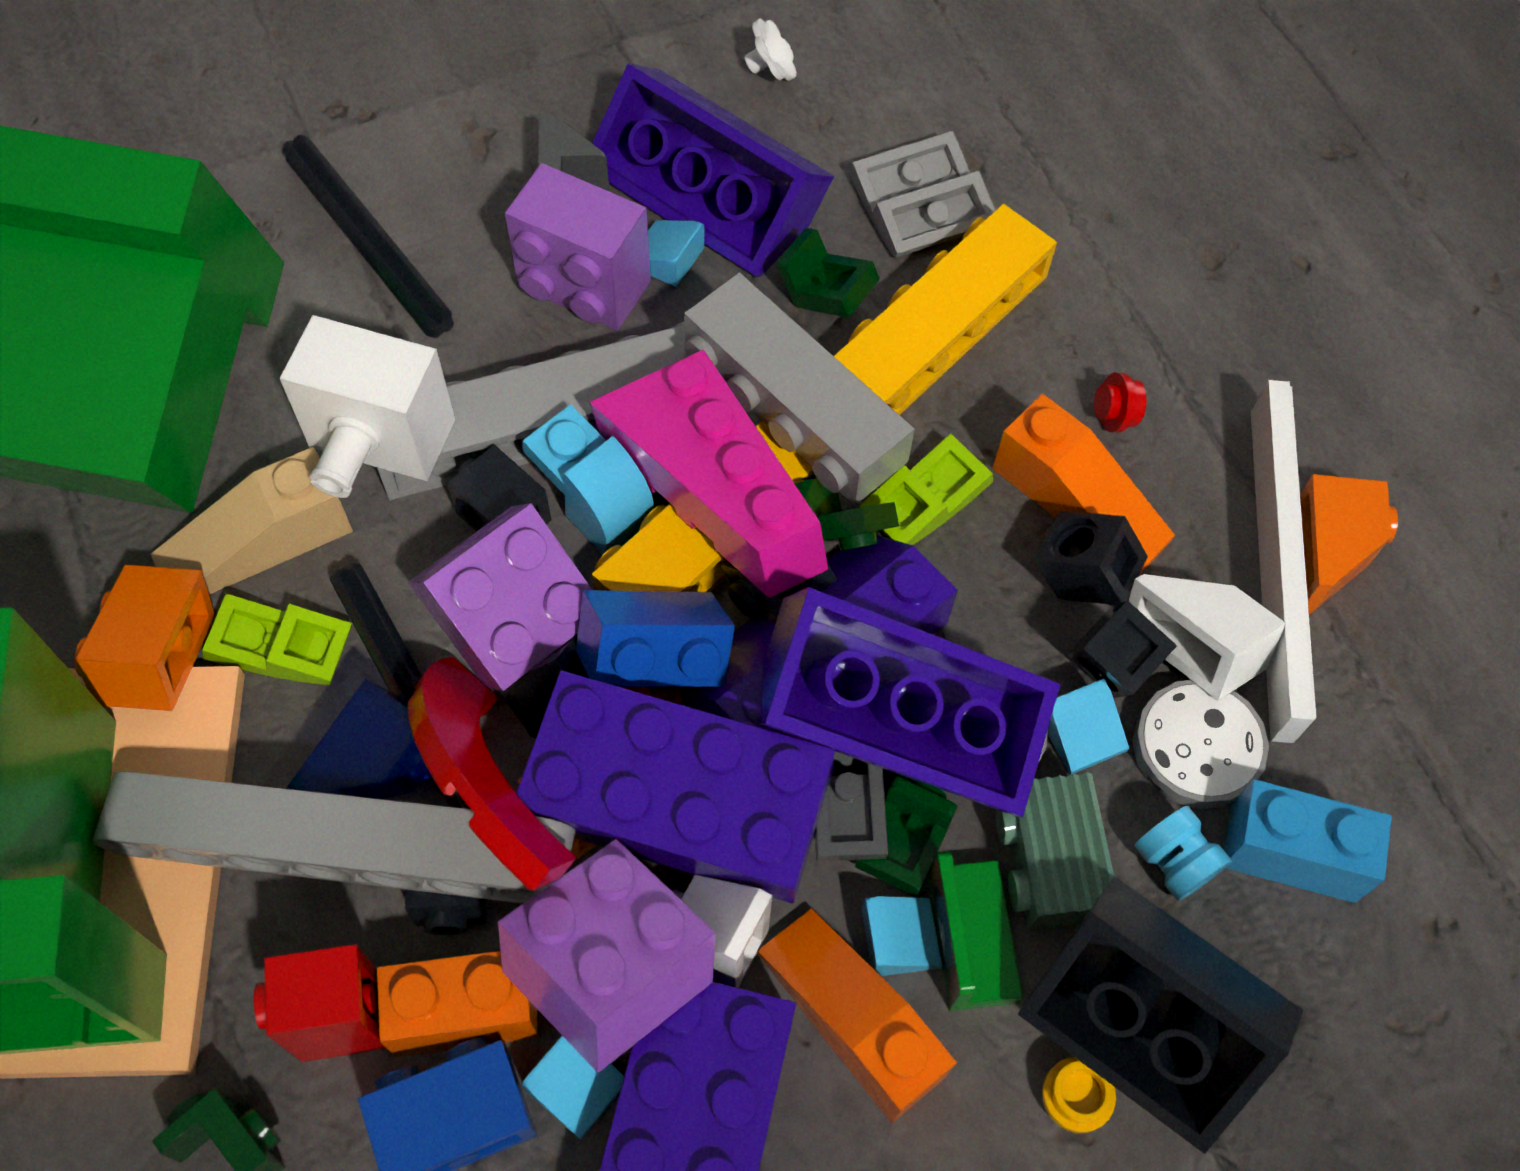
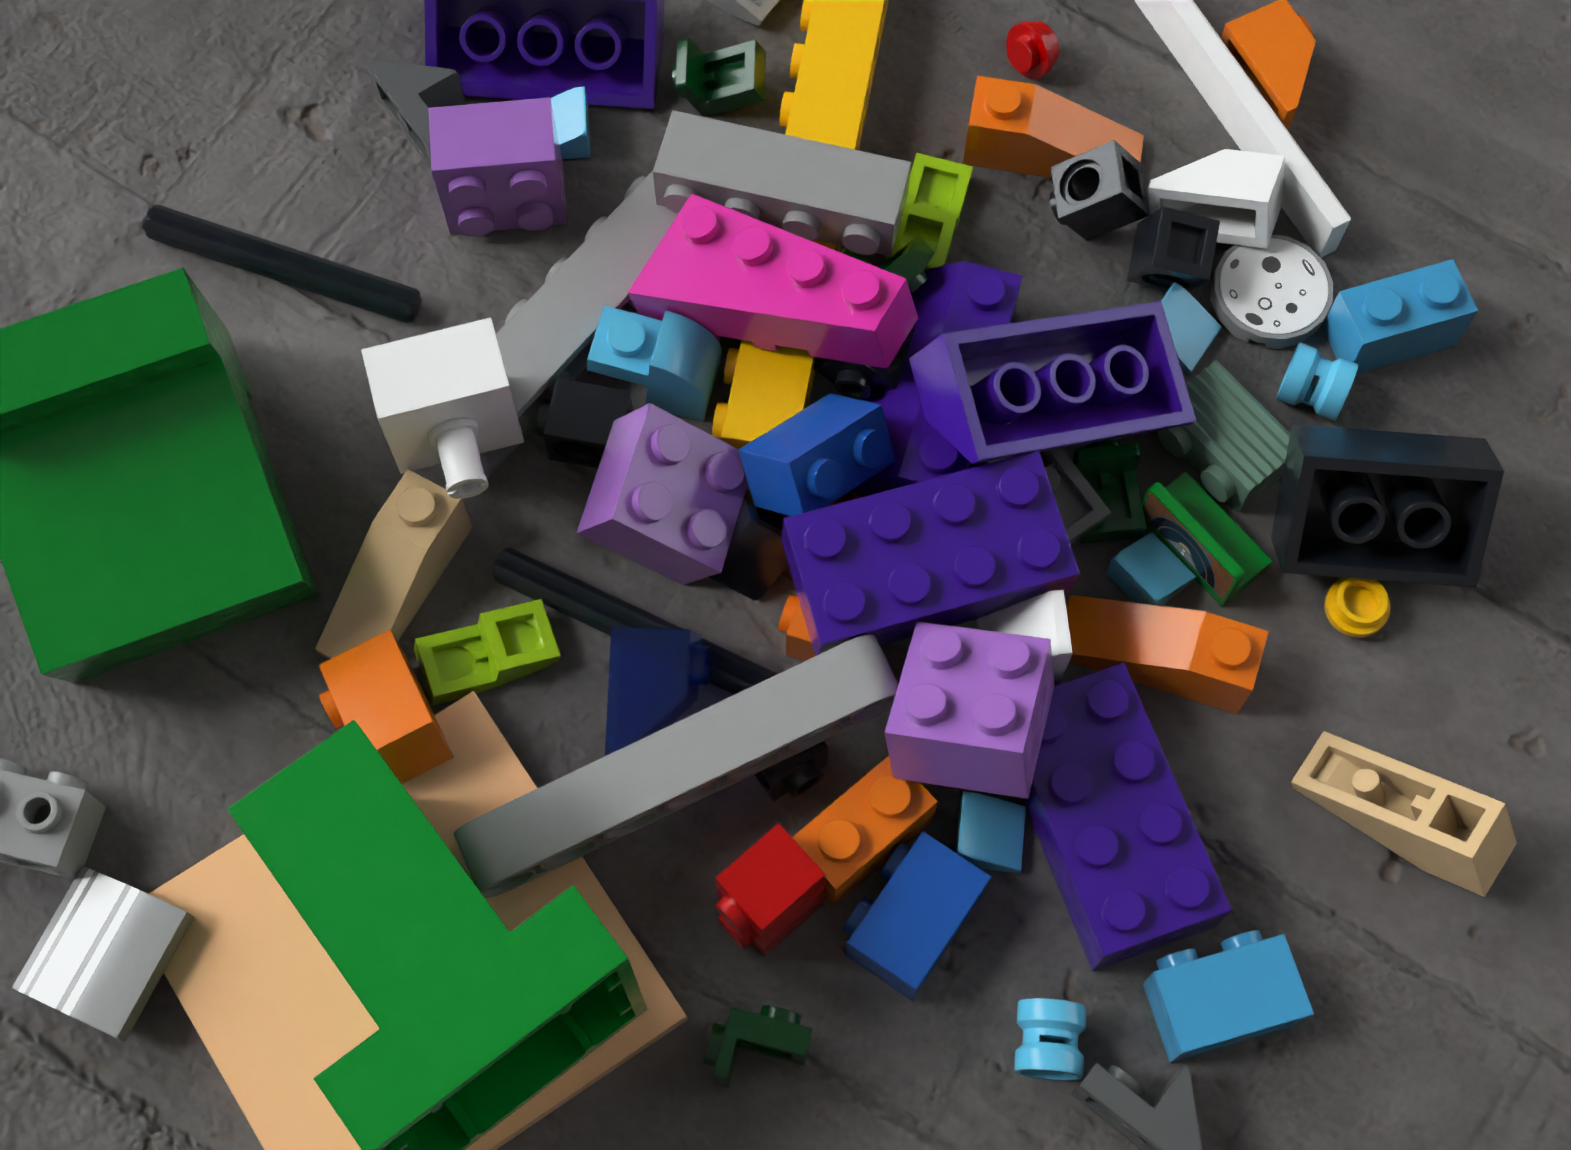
camera: 30 degrees left, 5 degrees up
(449, 737) = (705, 617): red tile -> none

